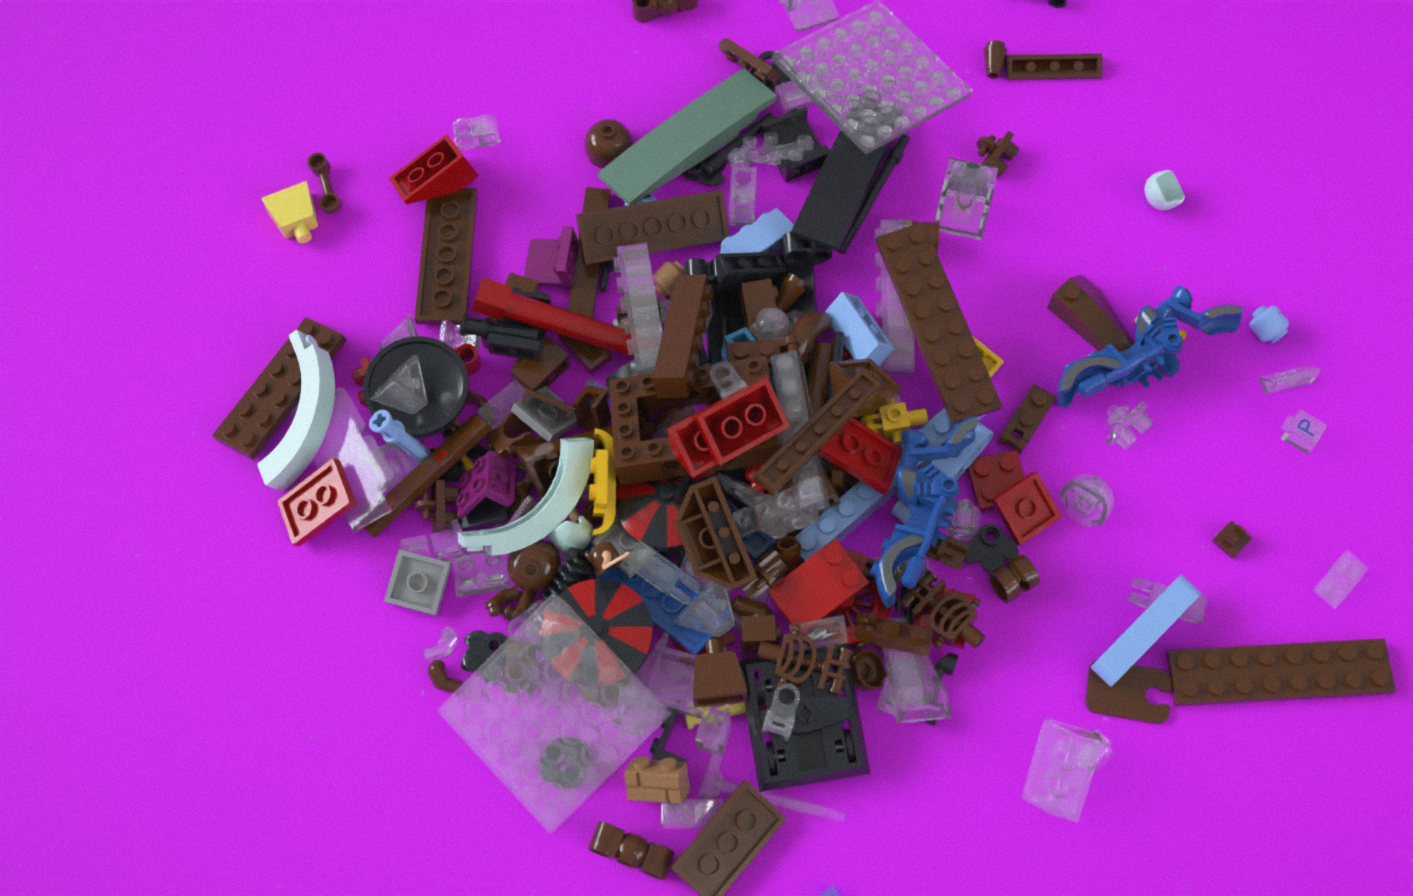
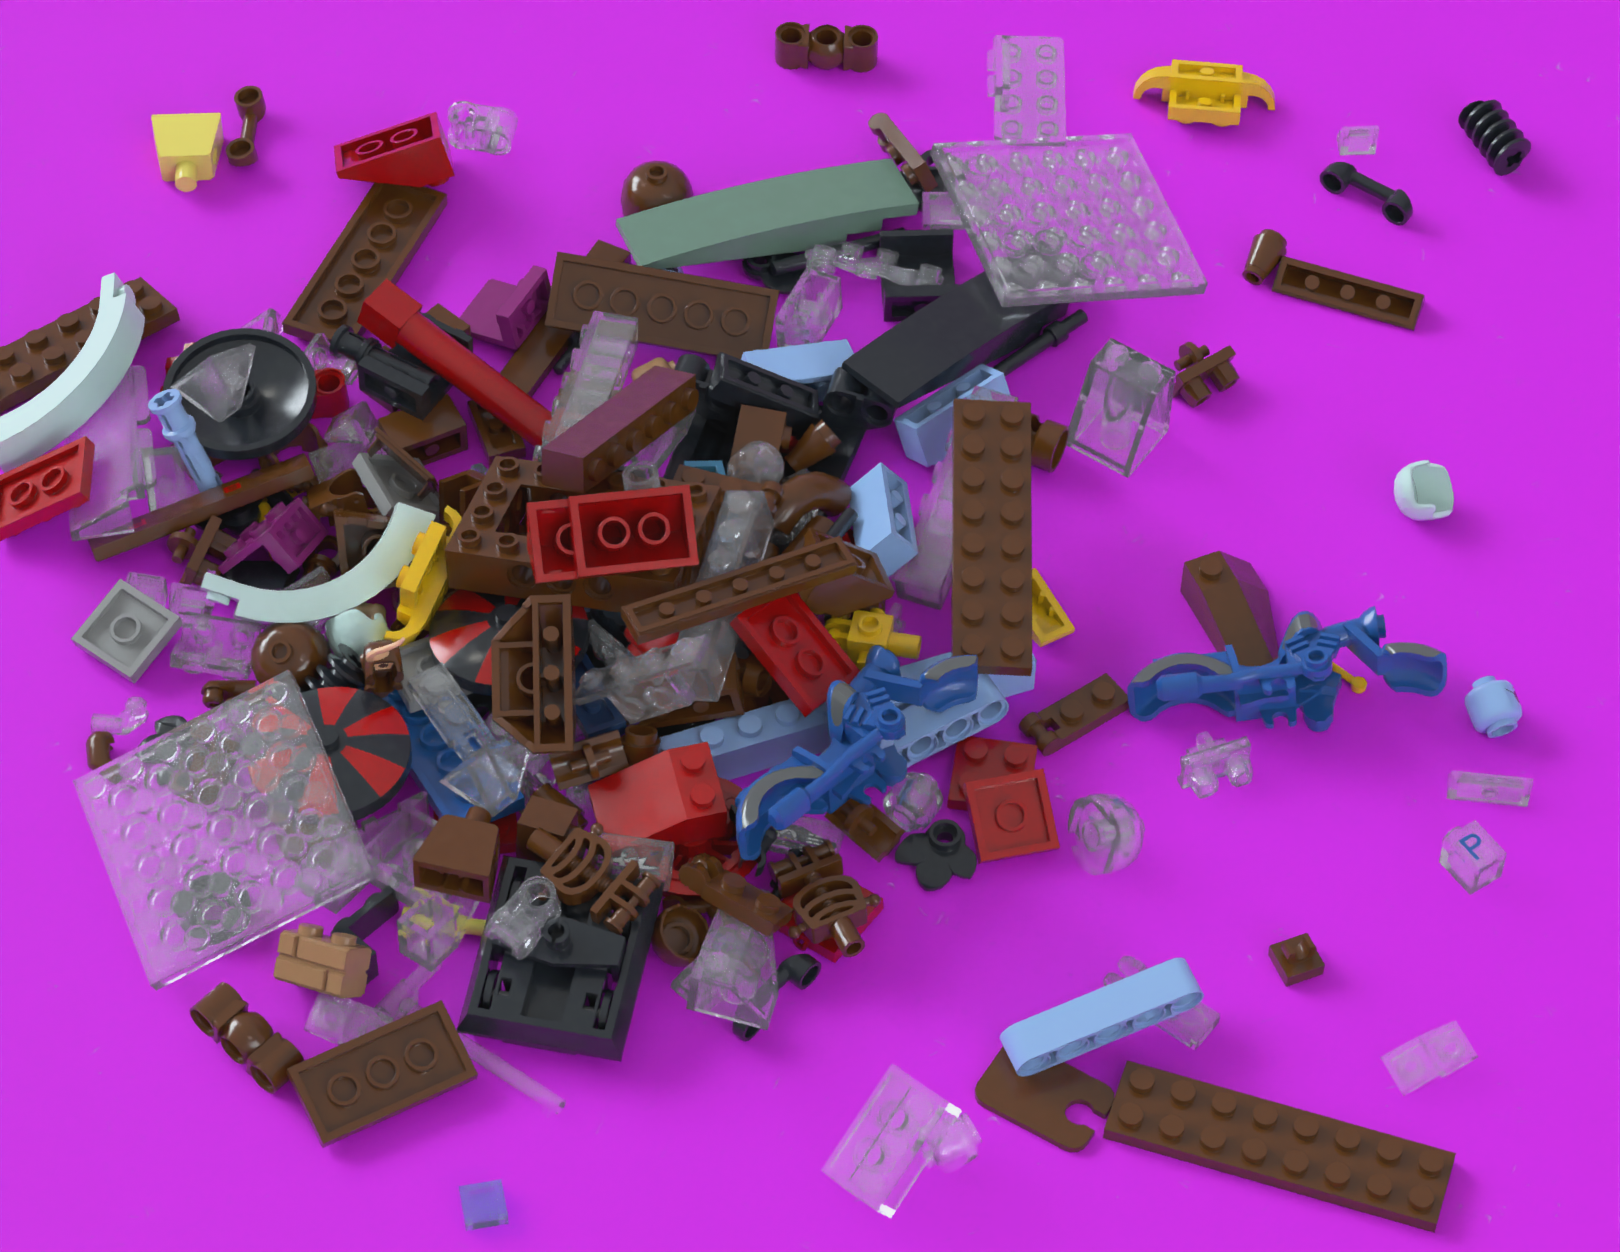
camera: 20 degrees right, 15 degrees down
(494, 380) = (353, 426): none -> clear slope
(859, 244) = (927, 424): none -> light blue brick
(1012, 579) = (948, 896): reddish brown wheel -> none

